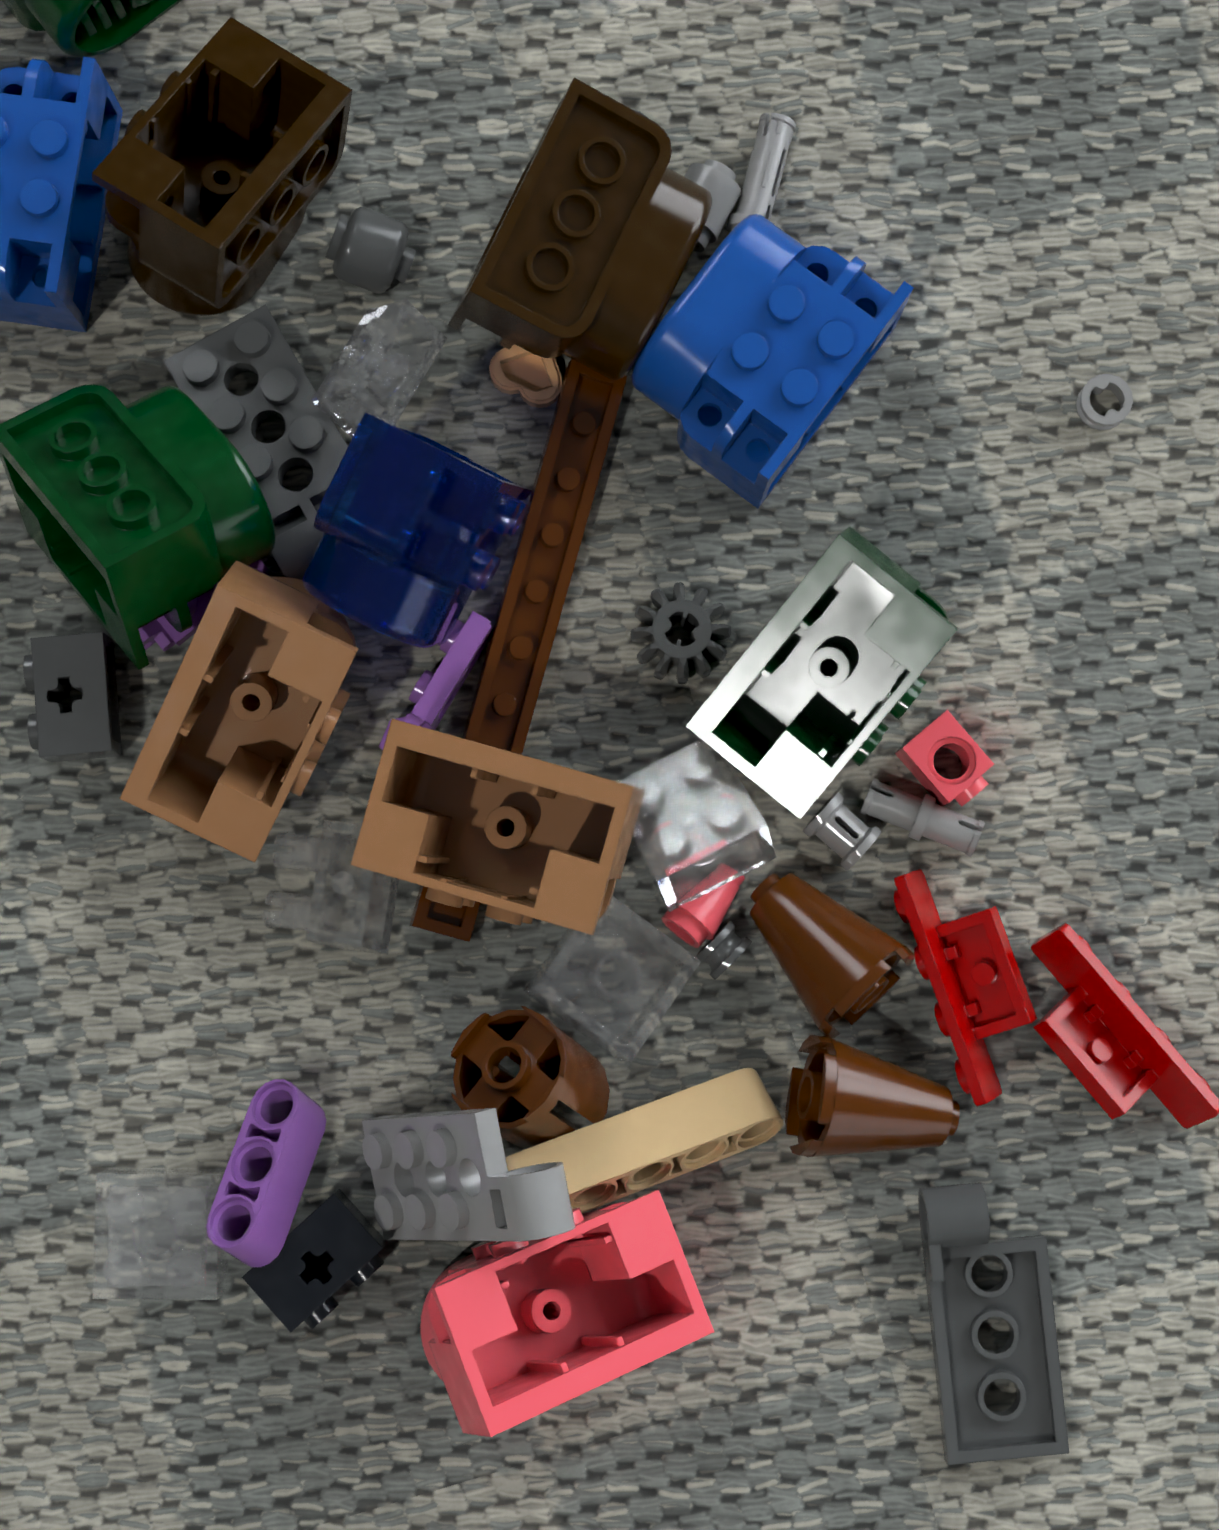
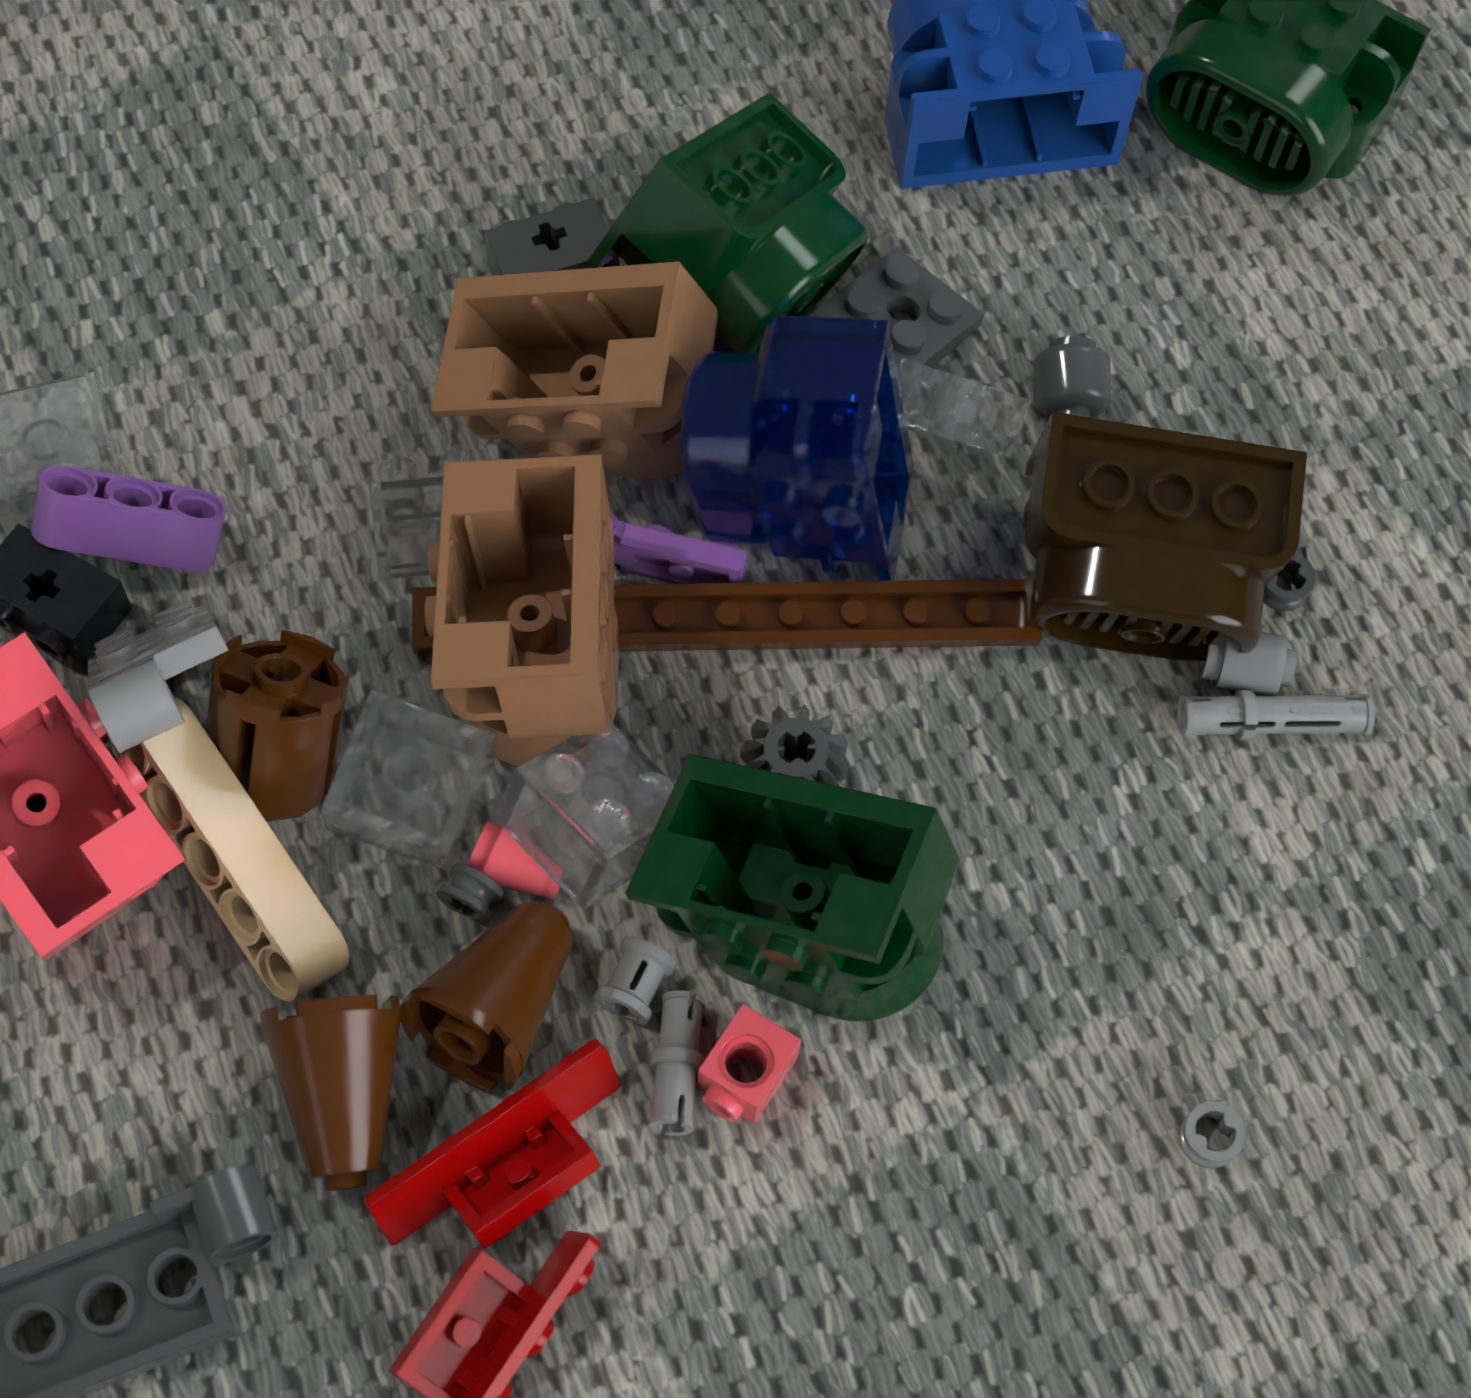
camera: 75 degrees right, 20 degrees down
(223, 170) = (1088, 223): dark brown brick -> none
(526, 374) = (1006, 551): light nougat tile -> none
(763, 352) = (1118, 746): blue brick -> none

